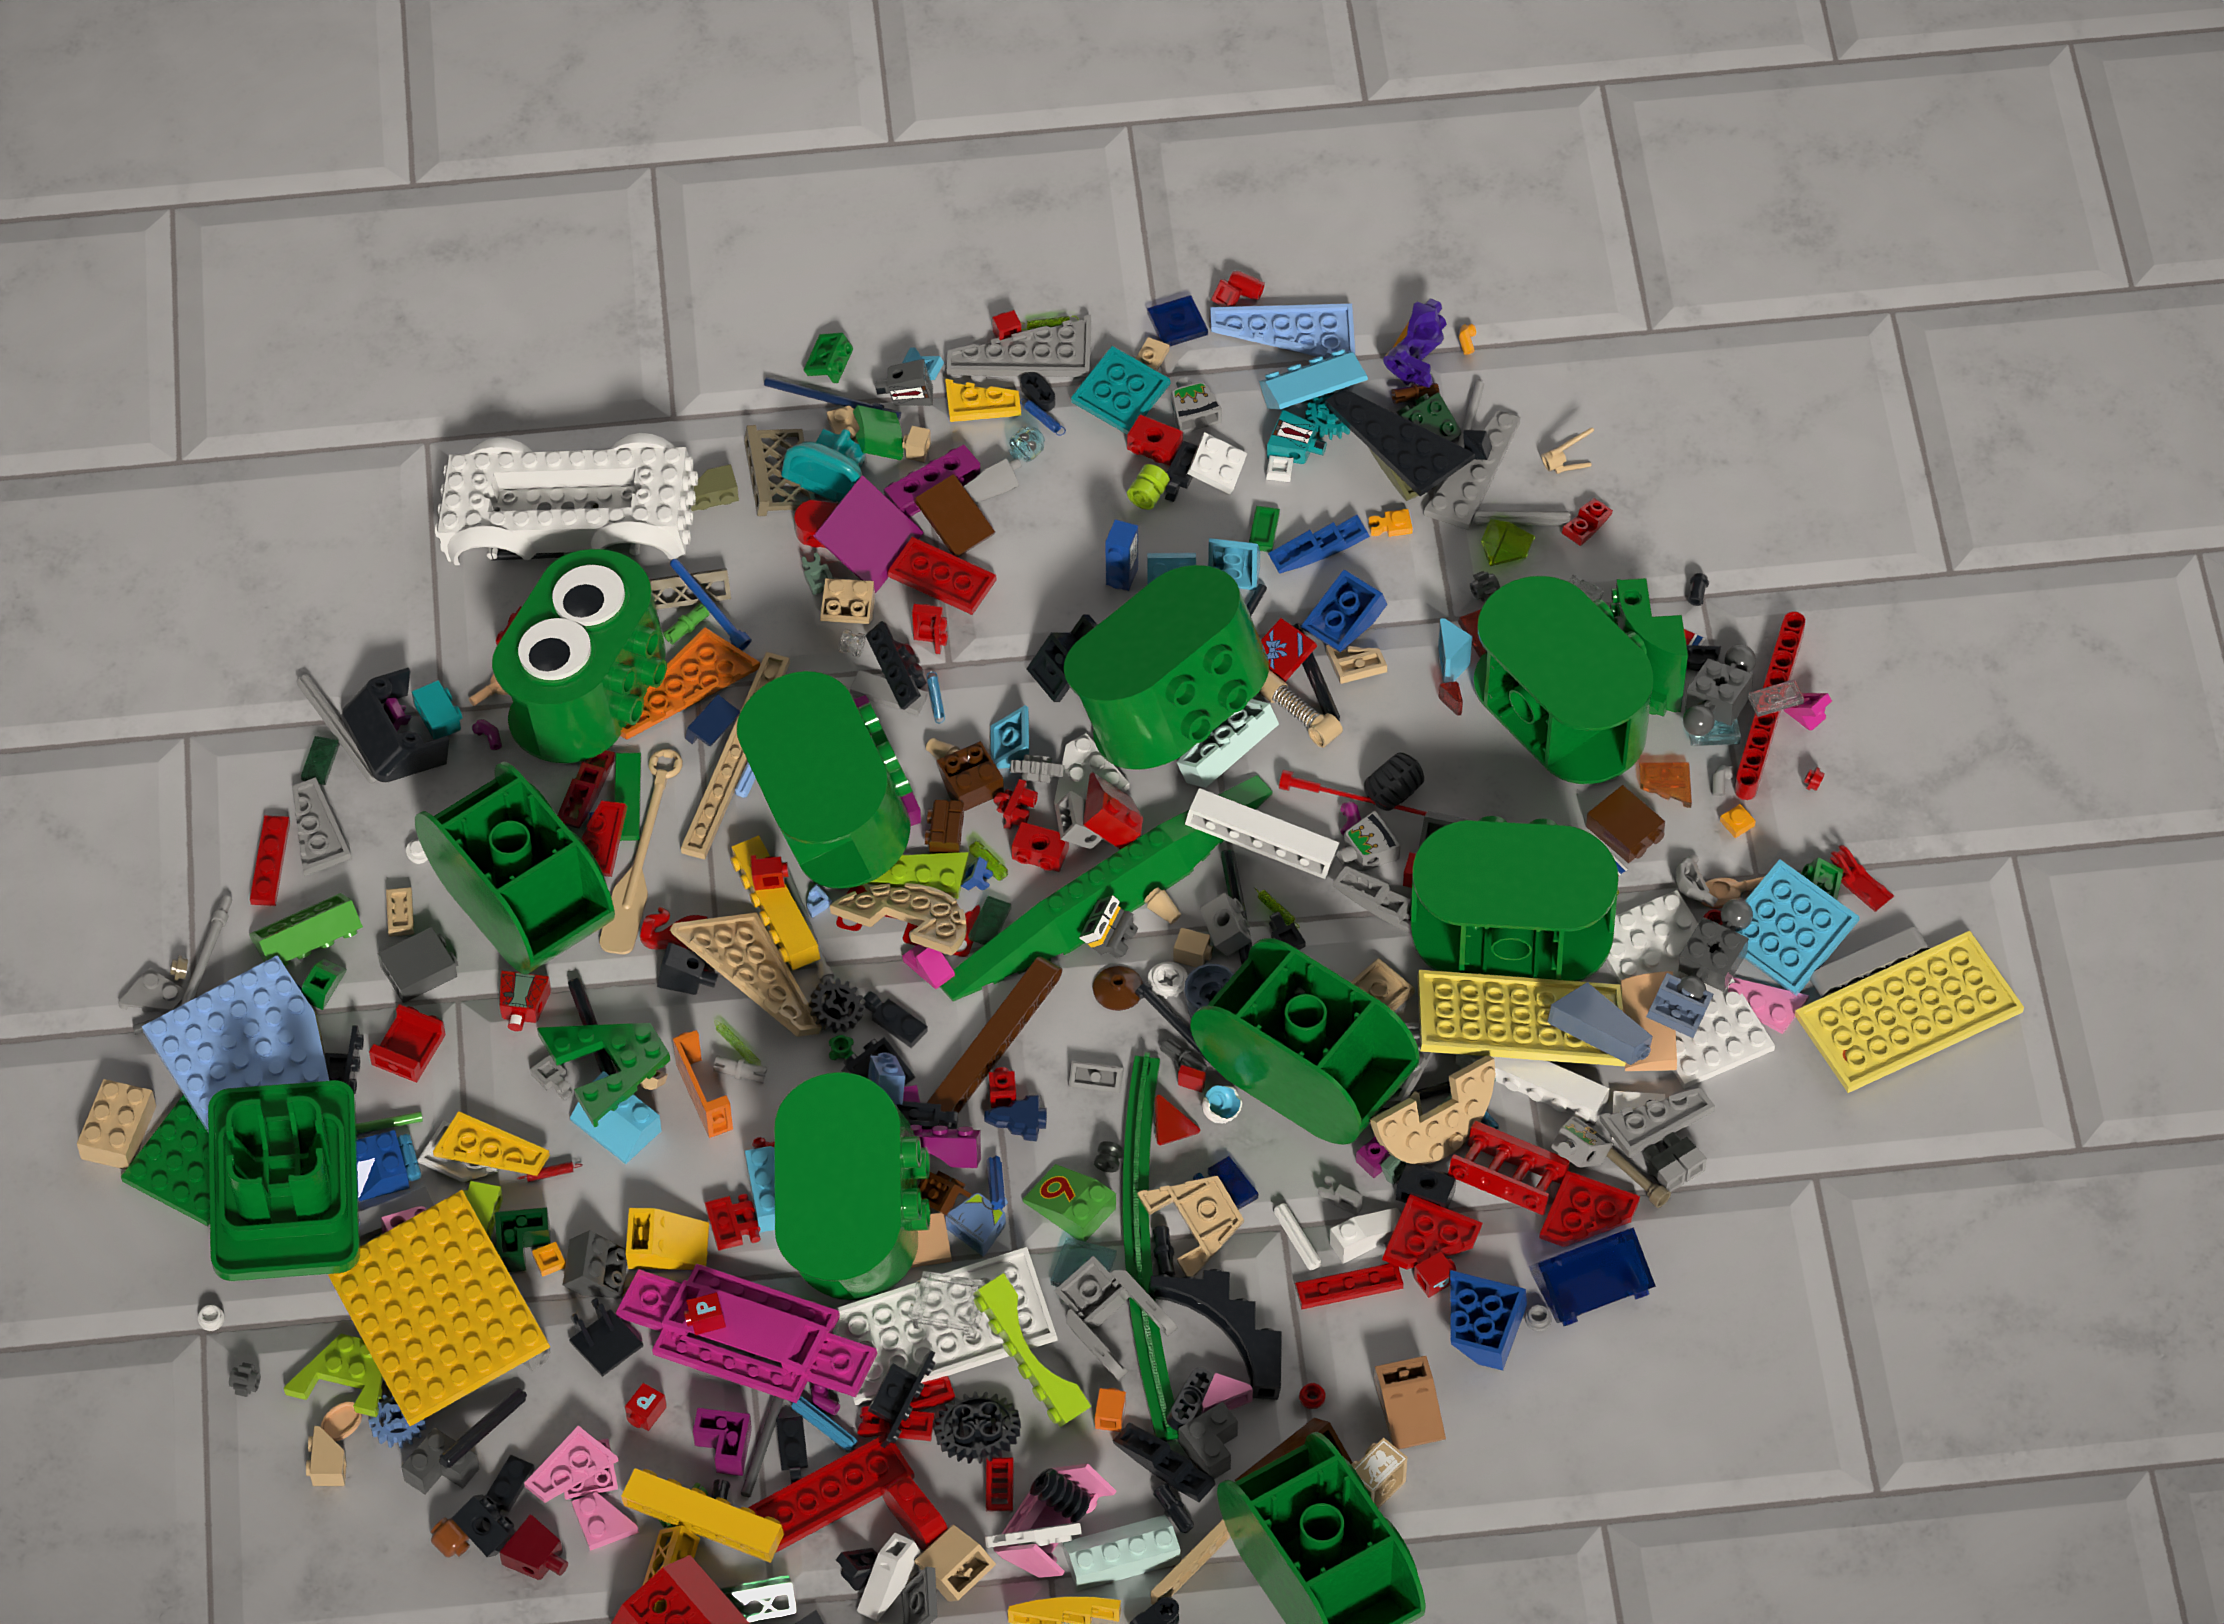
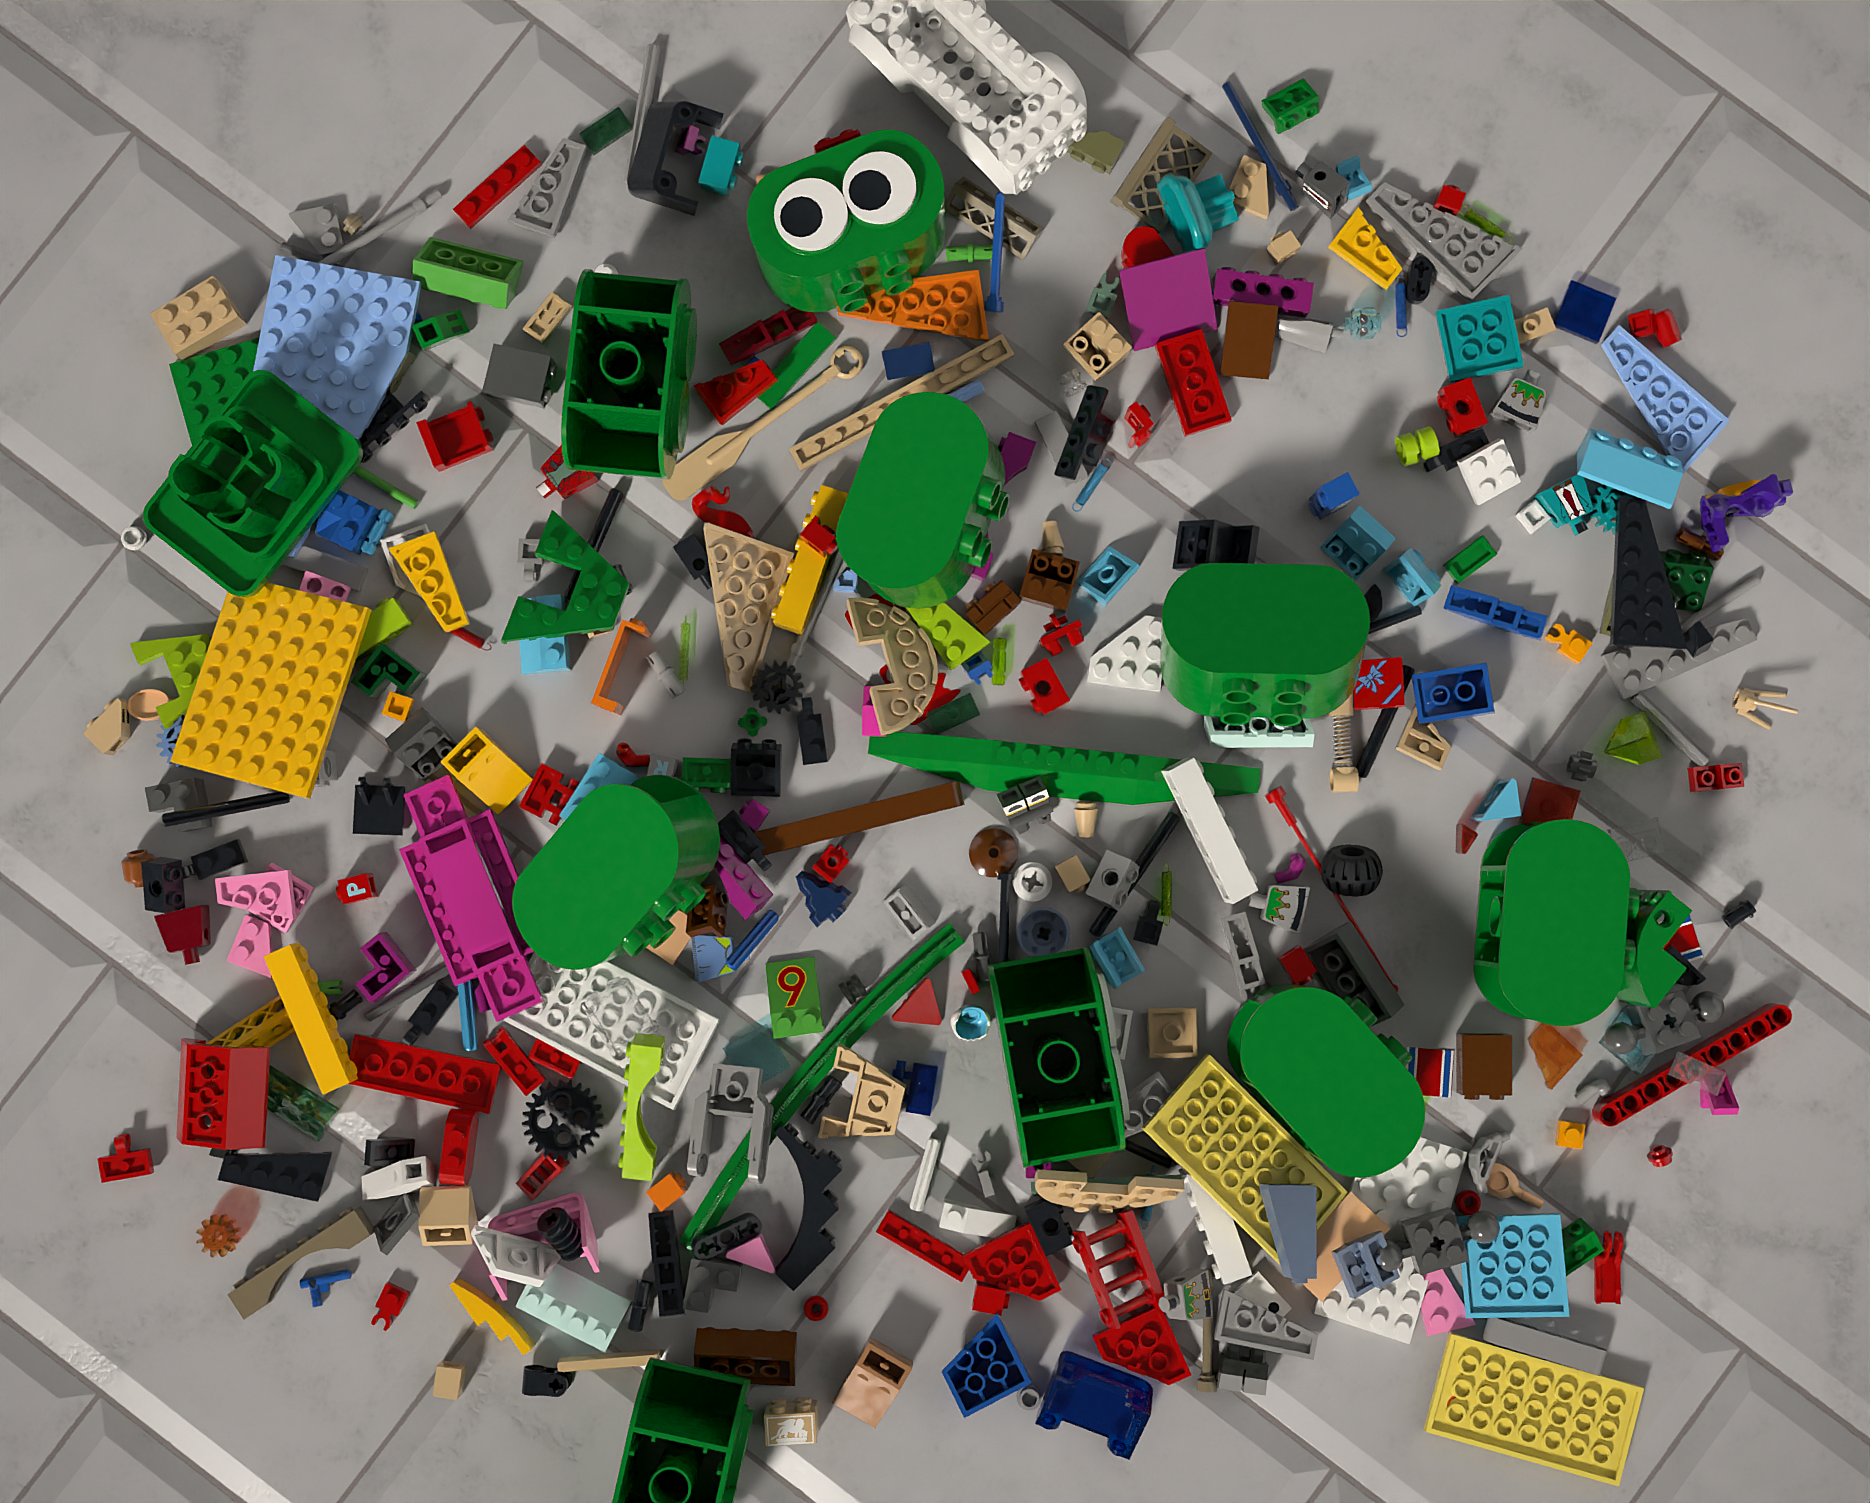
camera: 40 degrees right, 30 degrees up
(244, 1379) = (109, 612): dark grey gear -> none
(492, 732) = (741, 208): magenta arm -> none
(705, 1314) = (444, 868): red brick -> none
(879, 432) = (1261, 213): green slope -> none
(888, 1074) = (743, 793): medium blue brick -> none
(896, 1394) = (525, 1050): black bracket -> none
(1037, 768) = (1099, 622): light grey gear -> none
(1070, 819) = (1088, 698): light grey torso -> none
(1111, 813) = (1118, 712): red slope -> none
(1465, 335) = (1786, 528): light orange arm -> none

